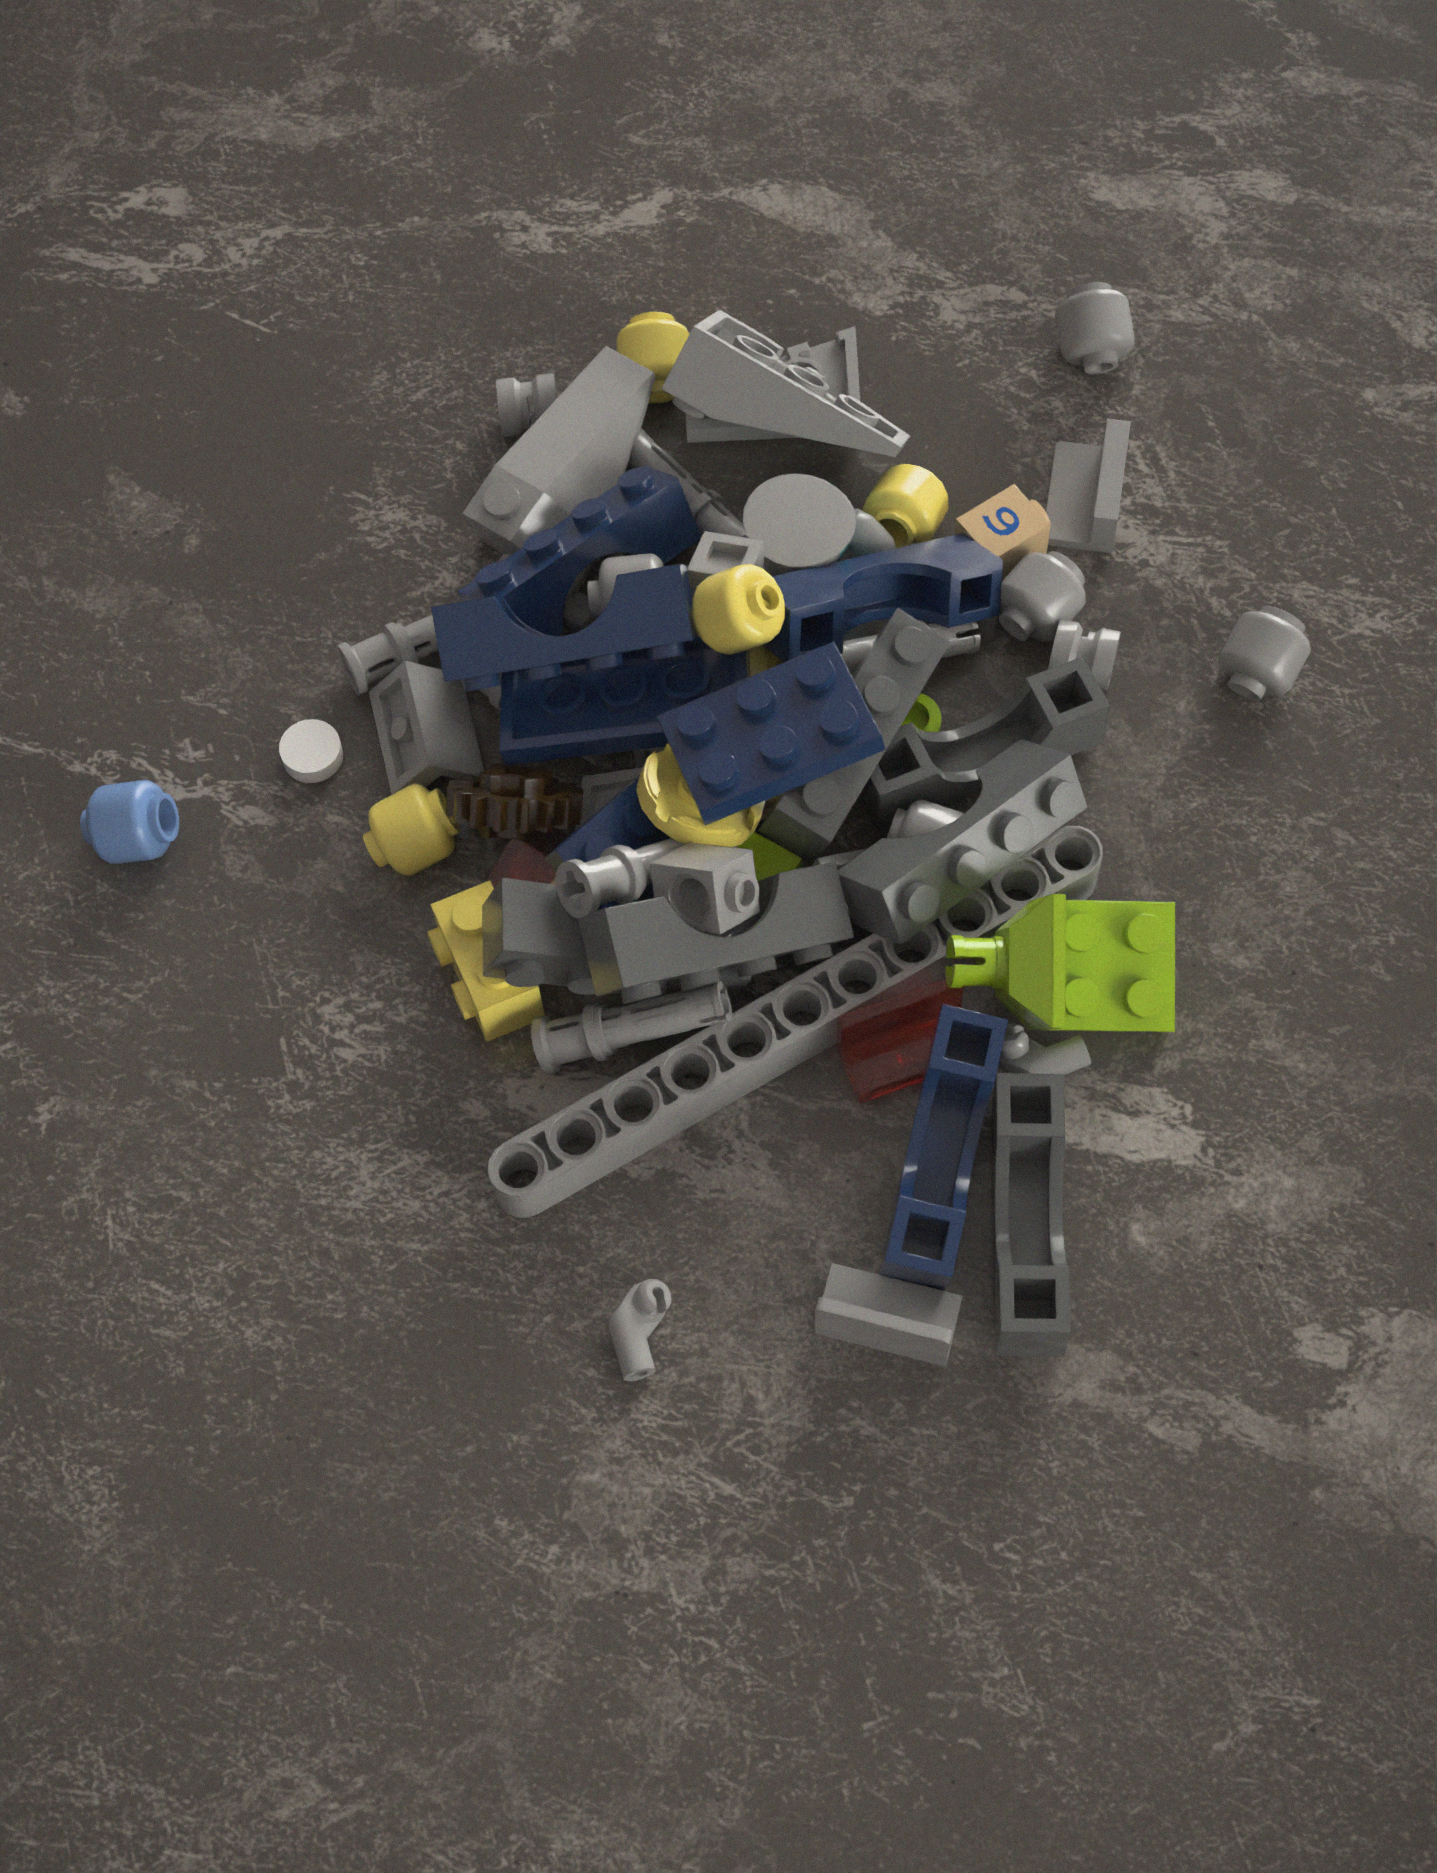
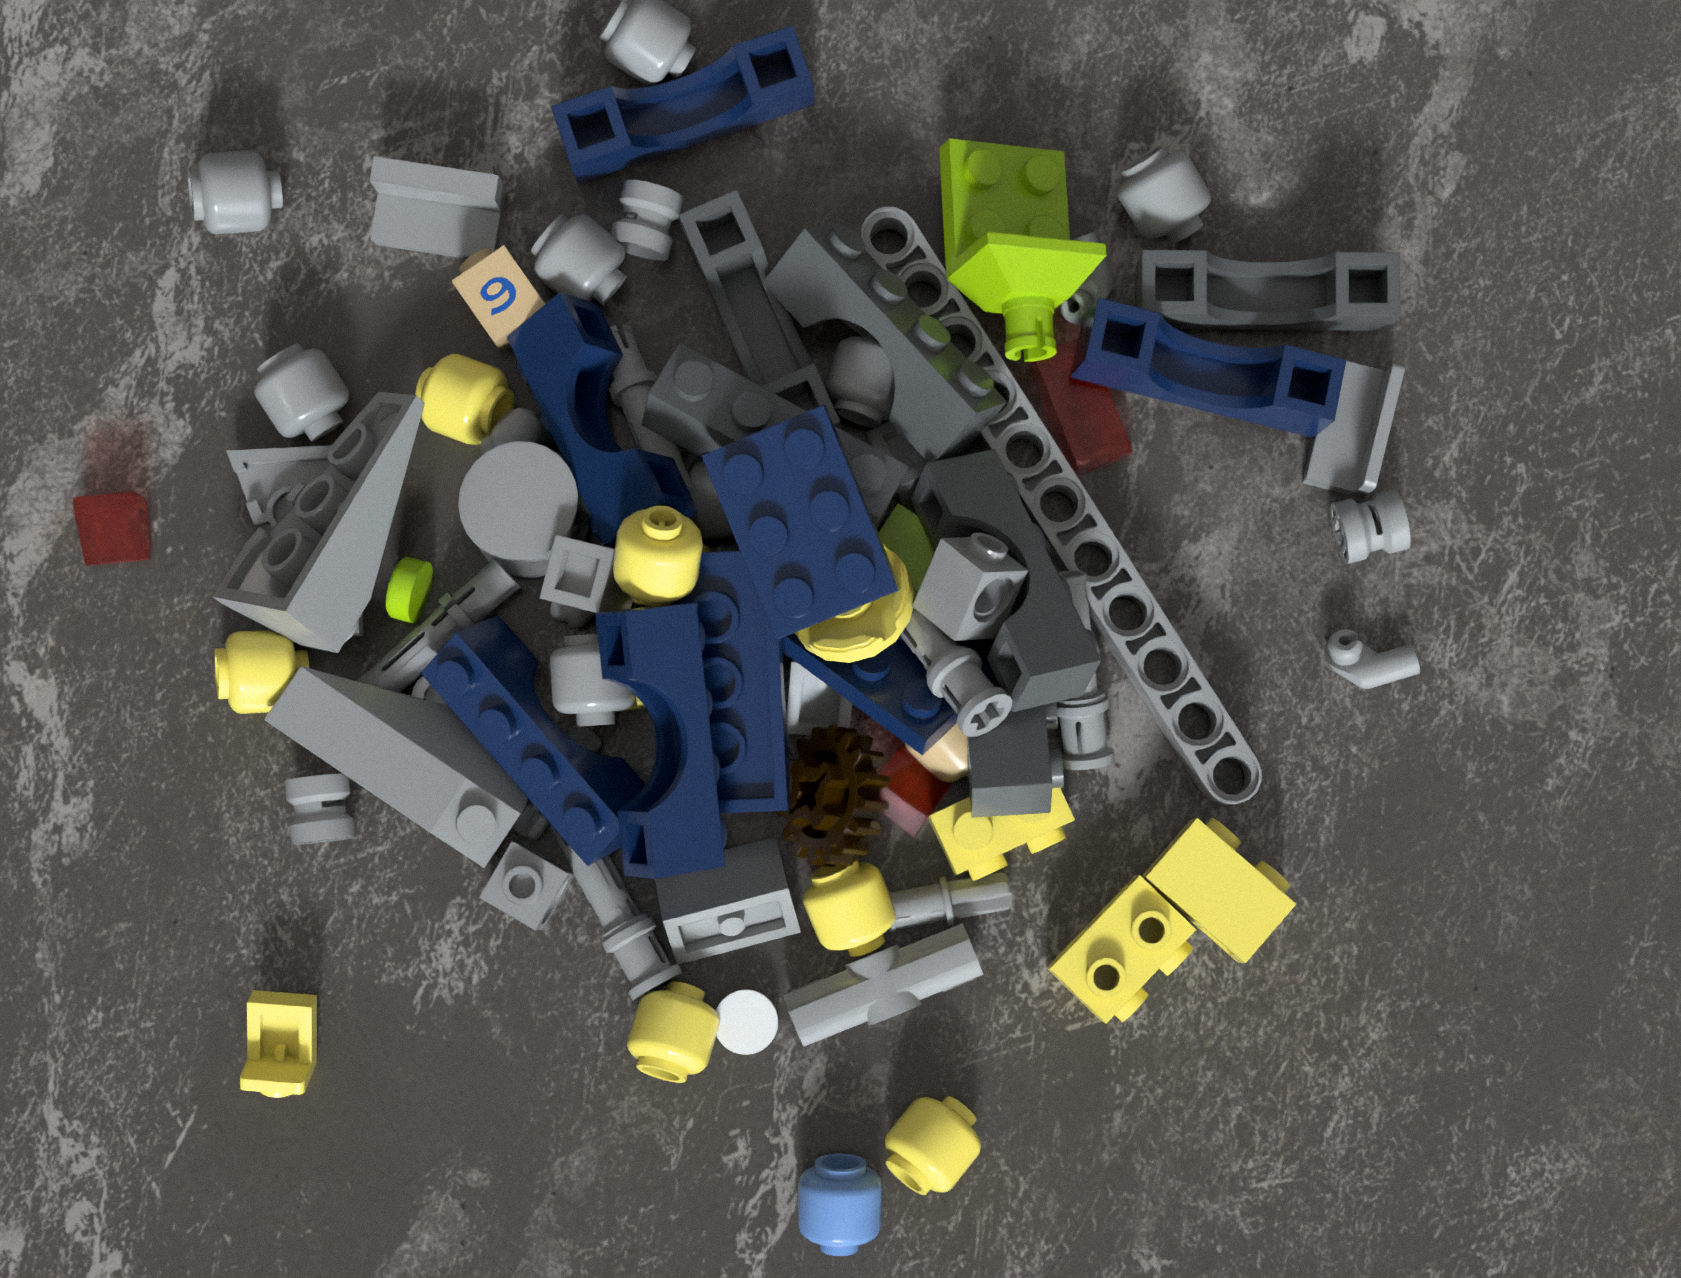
camera: 90 degrees left, 20 degrees up
(176, 901) = (932, 1144): none -> light yellow head
(303, 682) = (673, 1032): none -> light yellow head
(321, 382) = (280, 1043): none -> light yellow bracket
(335, 862) = (882, 984): none -> light grey piece
(351, 1074) = (1123, 951): none -> light yellow brick
(404, 1160) = (1220, 888): none -> light yellow brick
(410, 921) = (950, 900): none -> light grey axle
(444, 558) = (527, 886): none -> light grey brick
(727, 470) = (409, 589): none -> lime tile
(780, 1324) = (1370, 526): none -> light grey wheel
(788, 253) = (112, 527): none -> clear red slope
(909, 380) = (301, 392): none -> light grey head
(1131, 1122) = (1164, 194): none -> light grey head
(1218, 731) = (632, 126): none -> dark blue arch

